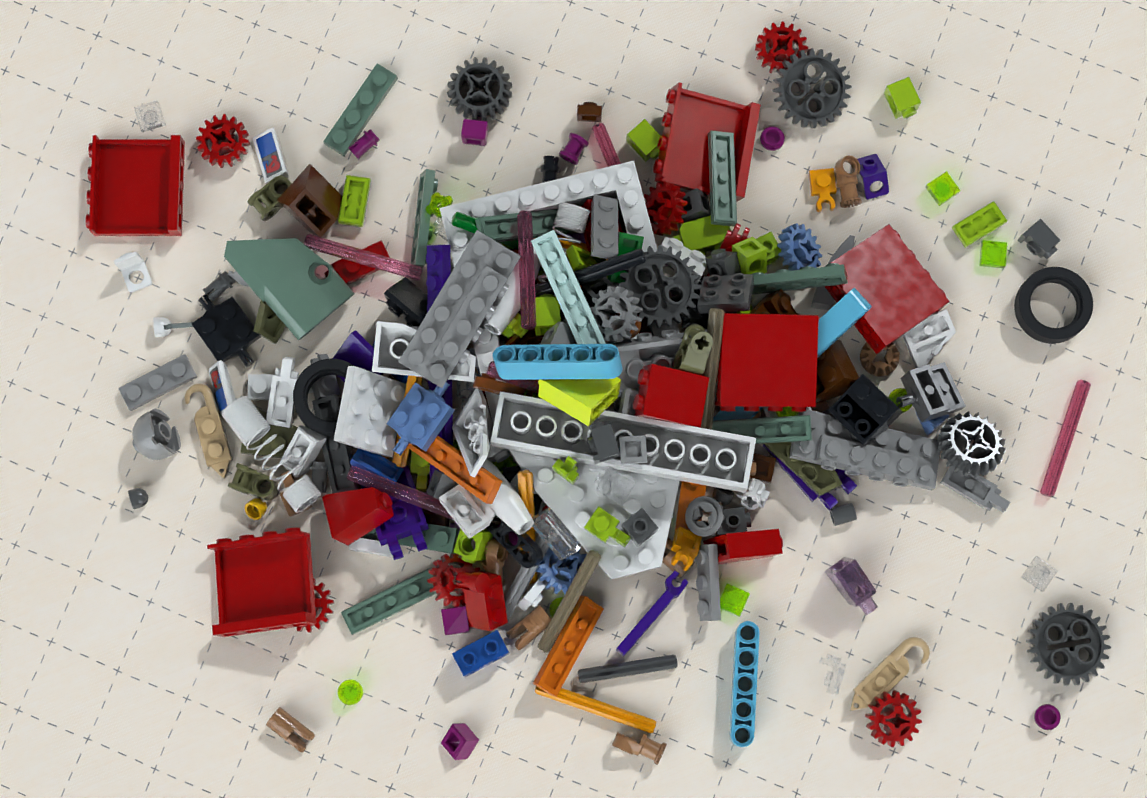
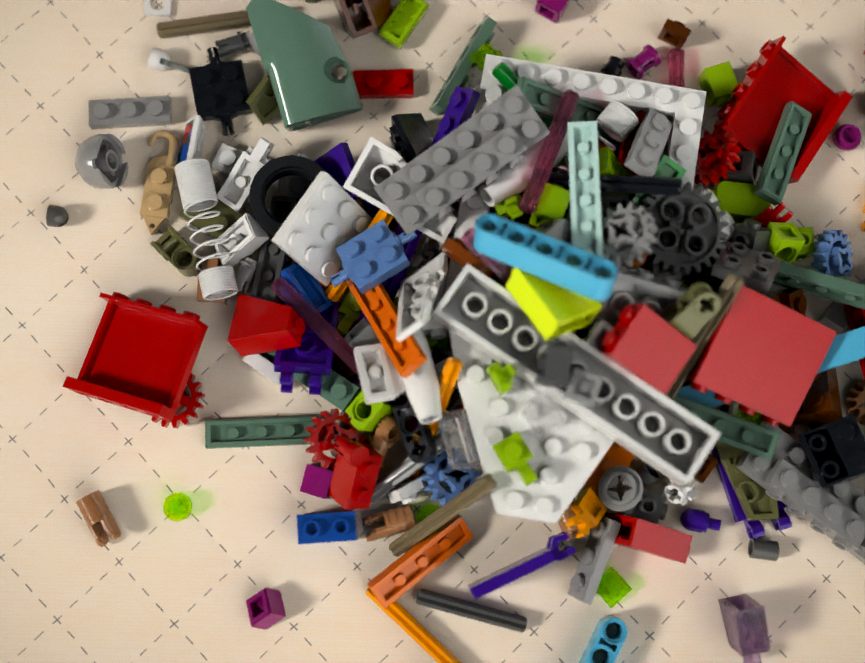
camera: 15 degrees right, 0 degrees up
(190, 275) = (203, 24): none -> dark tan axle
(252, 512) = (168, 278): yellow hinge -> none
(363, 257) = (387, 76): clear pink axle -> none
(639, 527) = (552, 473): dark grey brick -> none
(781, 514) = (698, 520): none -> dark purple cylinder

